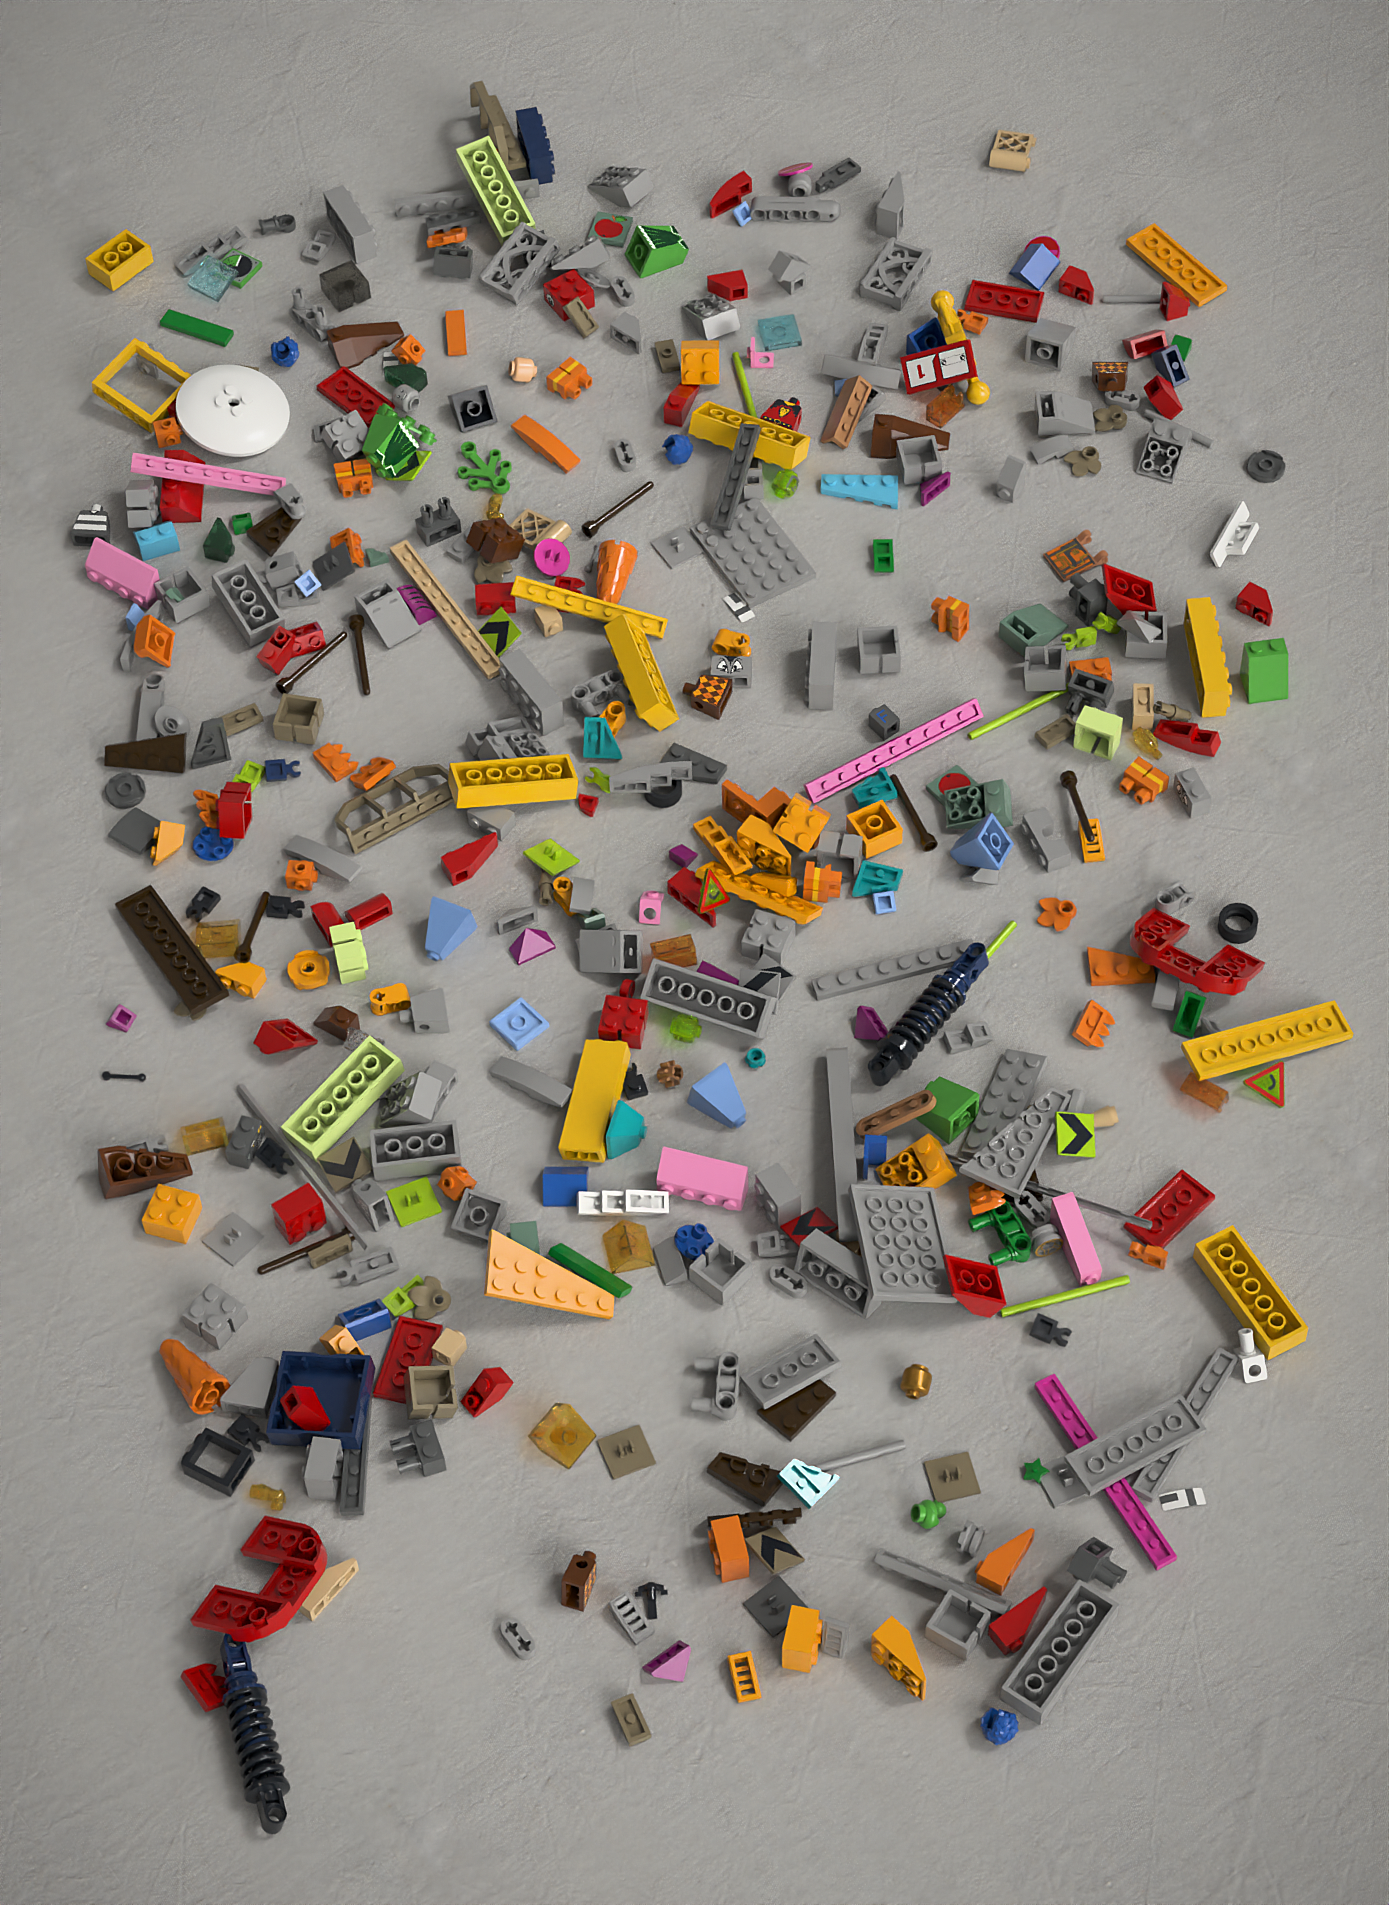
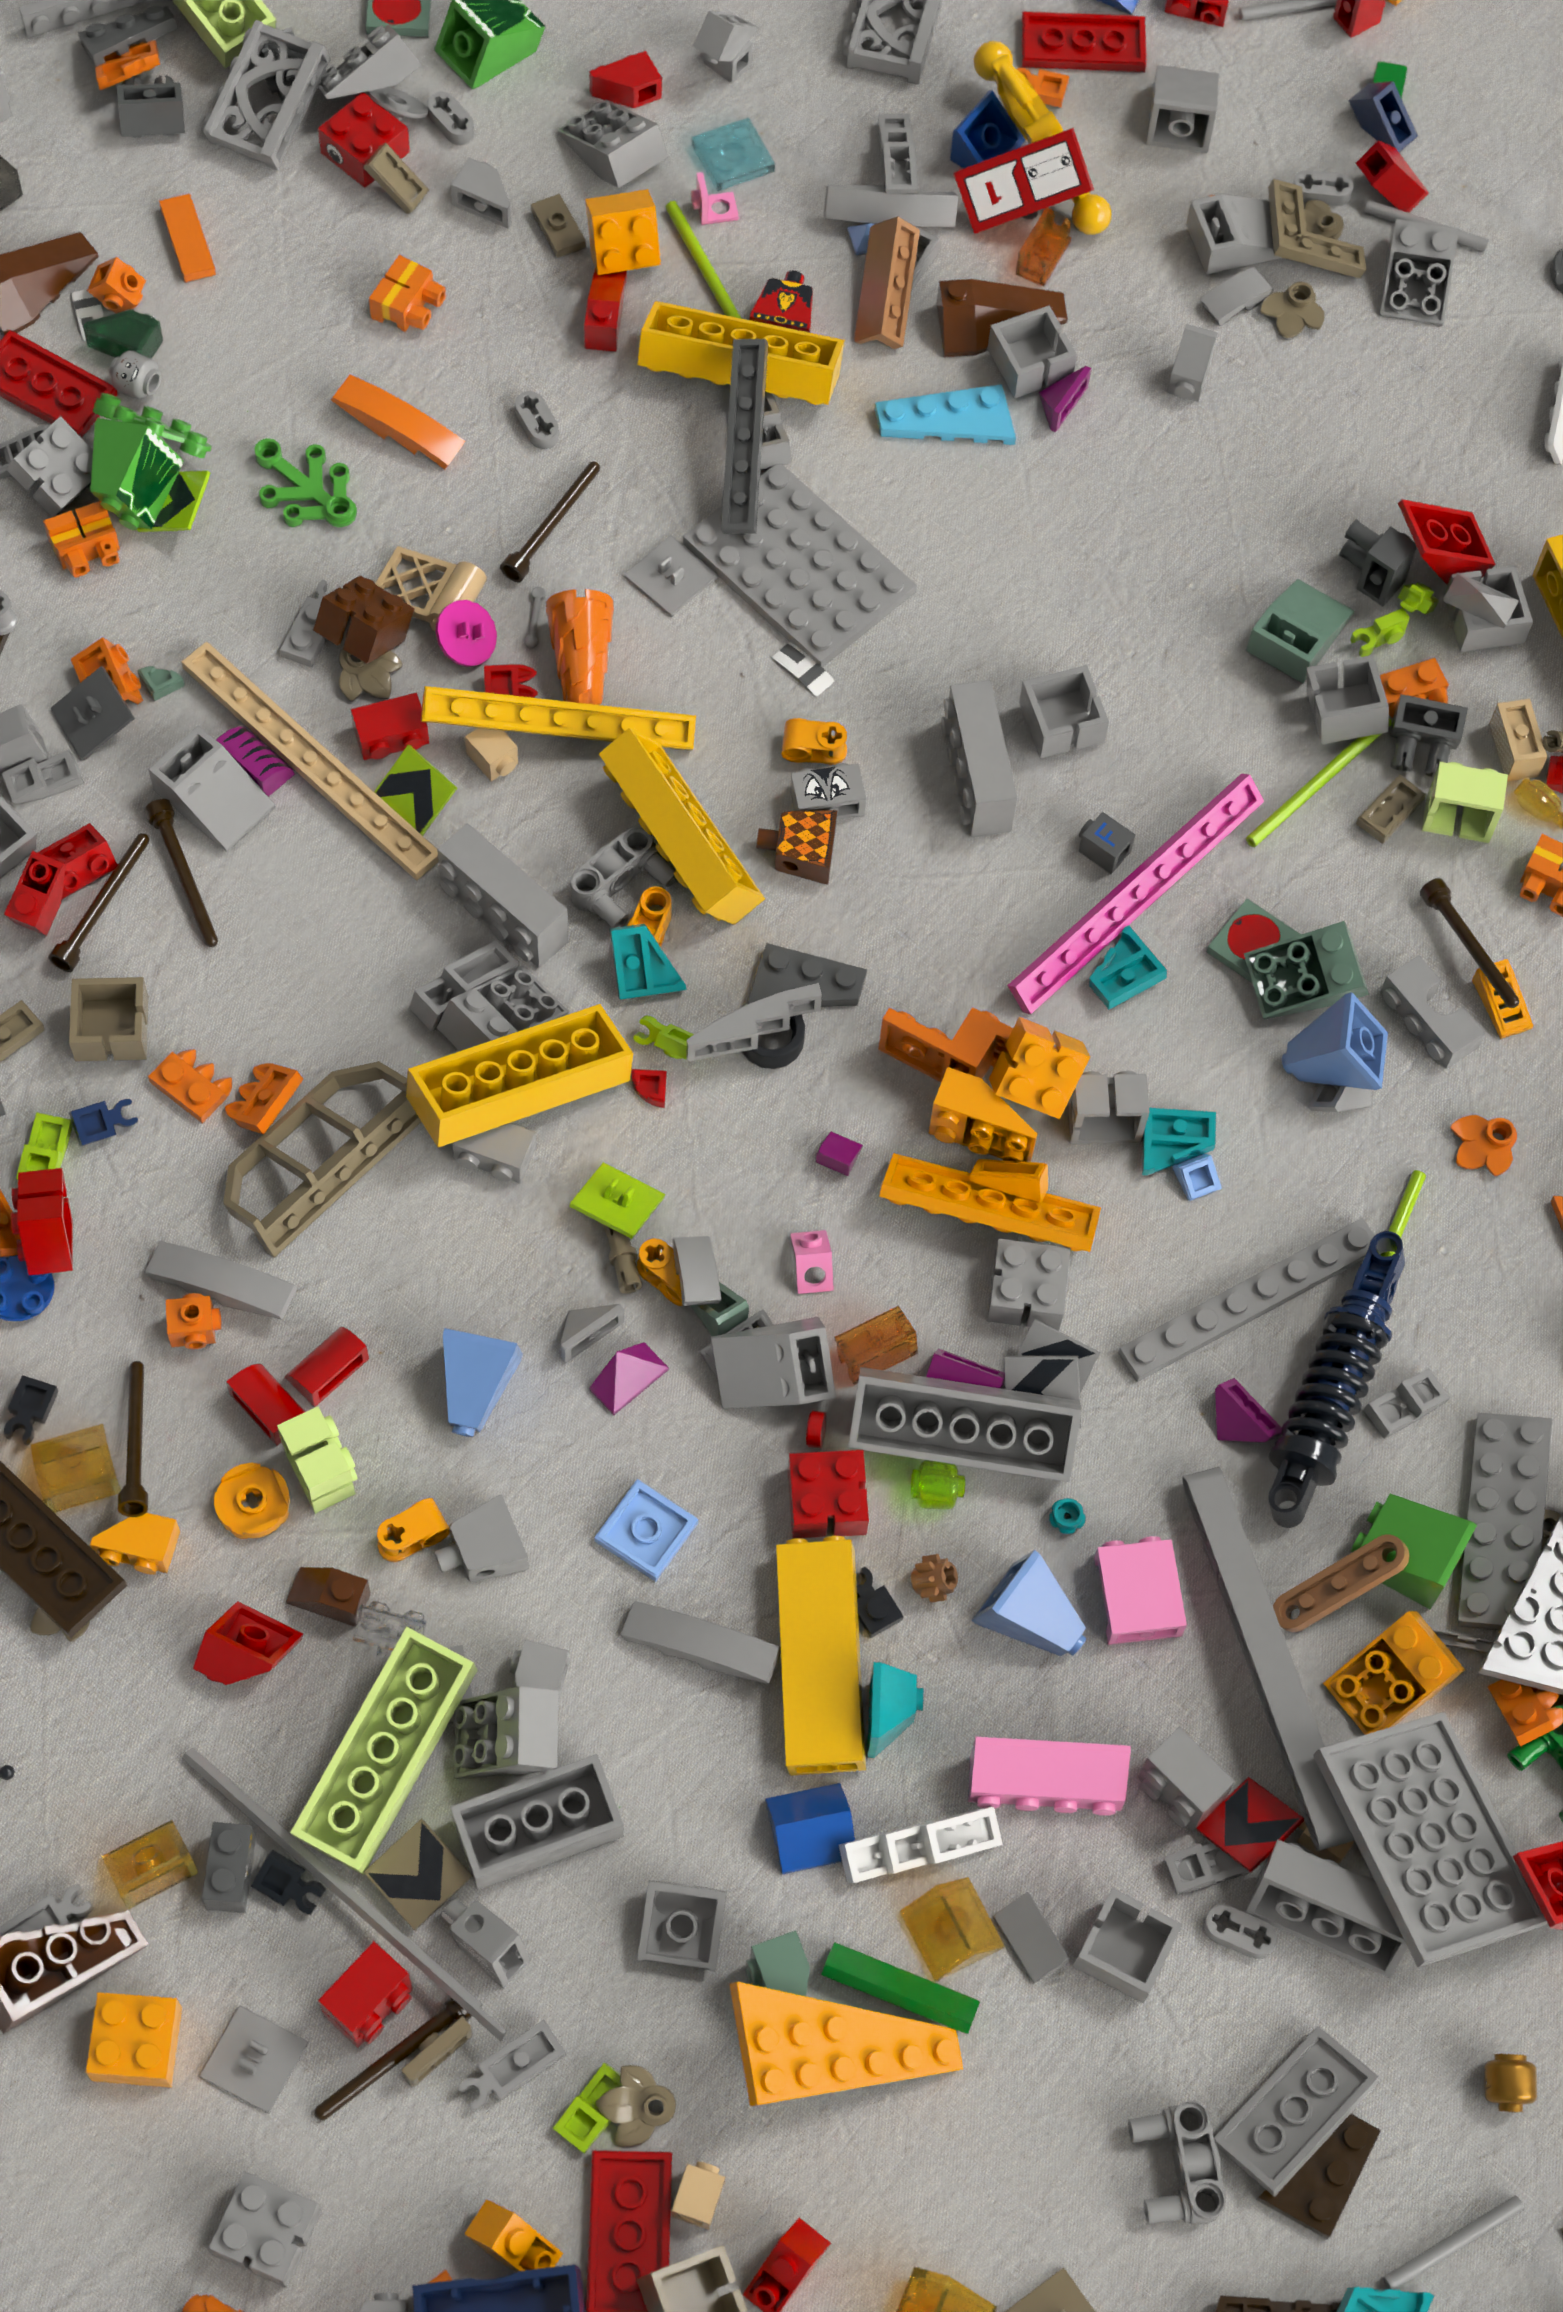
camera: 20 degrees left, 10 degrees up
(282, 906) = (169, 1385): black plate -> none
(307, 583) = (56, 755): light blue slope -> none
(366, 1319) = (532, 2170): blue slope -> none
(414, 1201) = (555, 1915): lime piece -> none
(437, 524) = (253, 603): dark grey brick -> none
(455, 1181) = (624, 1869): orange brick -> none
(466, 861) = (470, 1239): red slope -> none
(472, 408) = (255, 374): black slope -> none
(494, 506) = (342, 555): clear yellow arm -> none
(522, 369) = (321, 290): light nougat head -> none
(678, 449) = (628, 395): blue piece -> none
(686, 889) = (878, 1227): red slope -> none
(692, 1240) = (1065, 1894): blue dish -> none
(712, 893) = (921, 1227): piece -> none
(722, 846) = (903, 1126): light orange slope -> none
(783, 1102) = (1140, 1590): none -> bright pink panel
(785, 483) = (821, 430): clear neon green head -> none
(821, 883) = (1089, 1168): orange hips -> none
(874, 1152) = (1319, 1659): blue panel -> none
(877, 827) = (1150, 1043): light orange brick -> none
(883, 555) = (1017, 535): green slope -> none
(927, 840) = (1238, 1049): dark brown piece -> none
(951, 616) = (1165, 630): orange hips -> none
(1074, 557) = (1323, 488): flag -> none
(1091, 422) = (1295, 243): none -> dark tan plate
(1110, 375) = (1295, 151): reddish brown torso -> none
(1145, 343) = (1332, 84): red brick -> none

